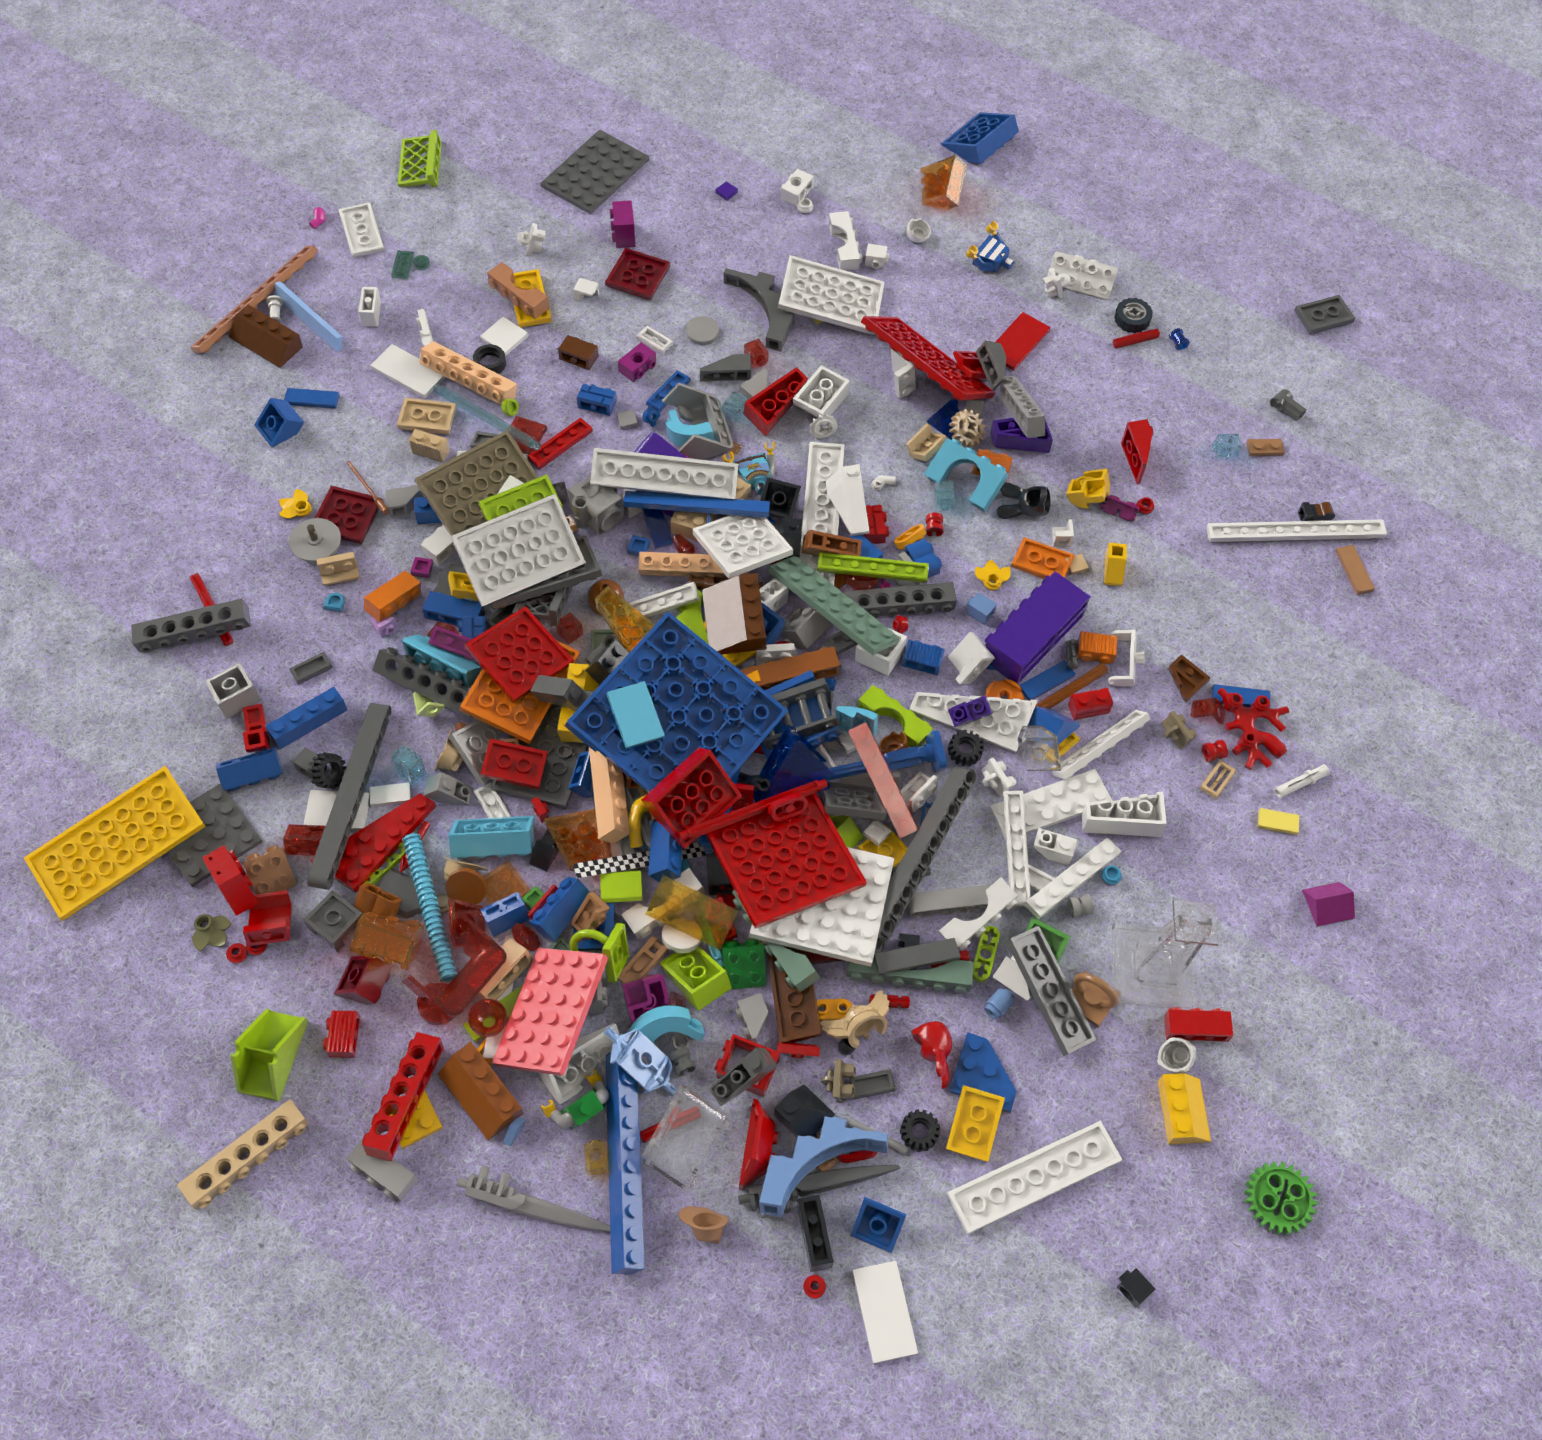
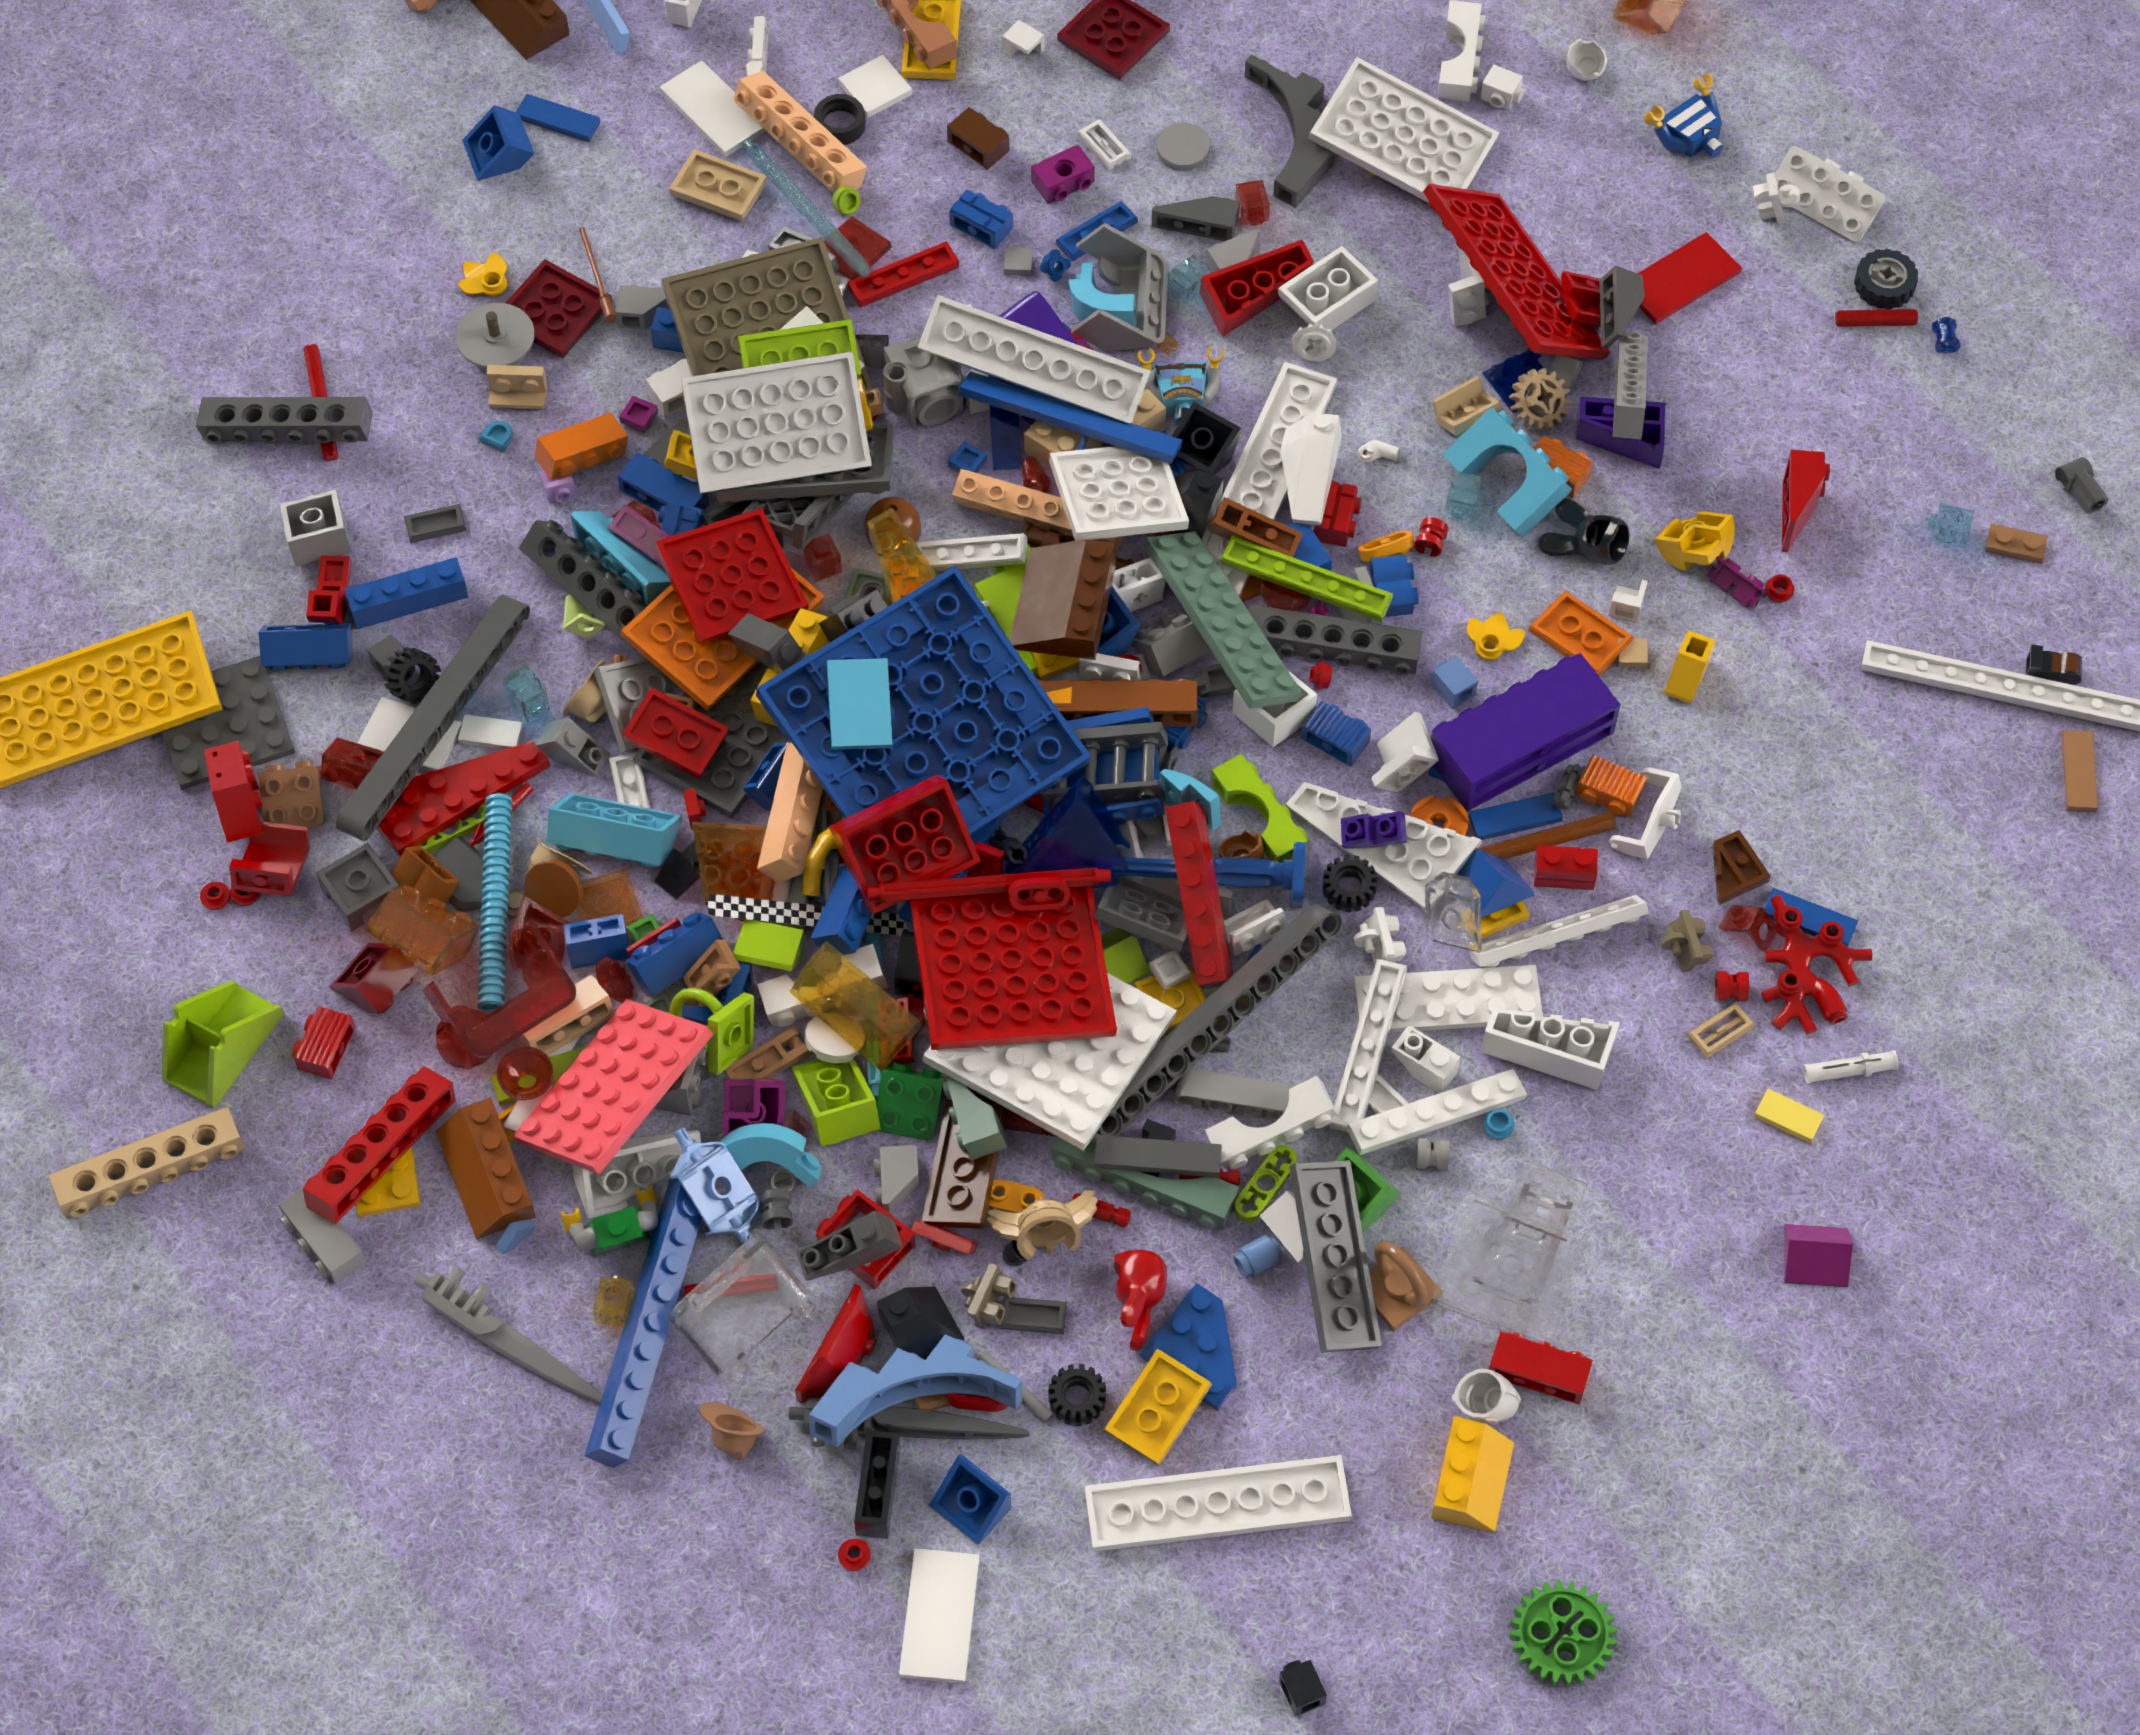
camera: 20 degrees right, 0 degrees up
(212, 933) = (189, 860): olive plate -> none
(429, 445) = (706, 232): tan brick -> none

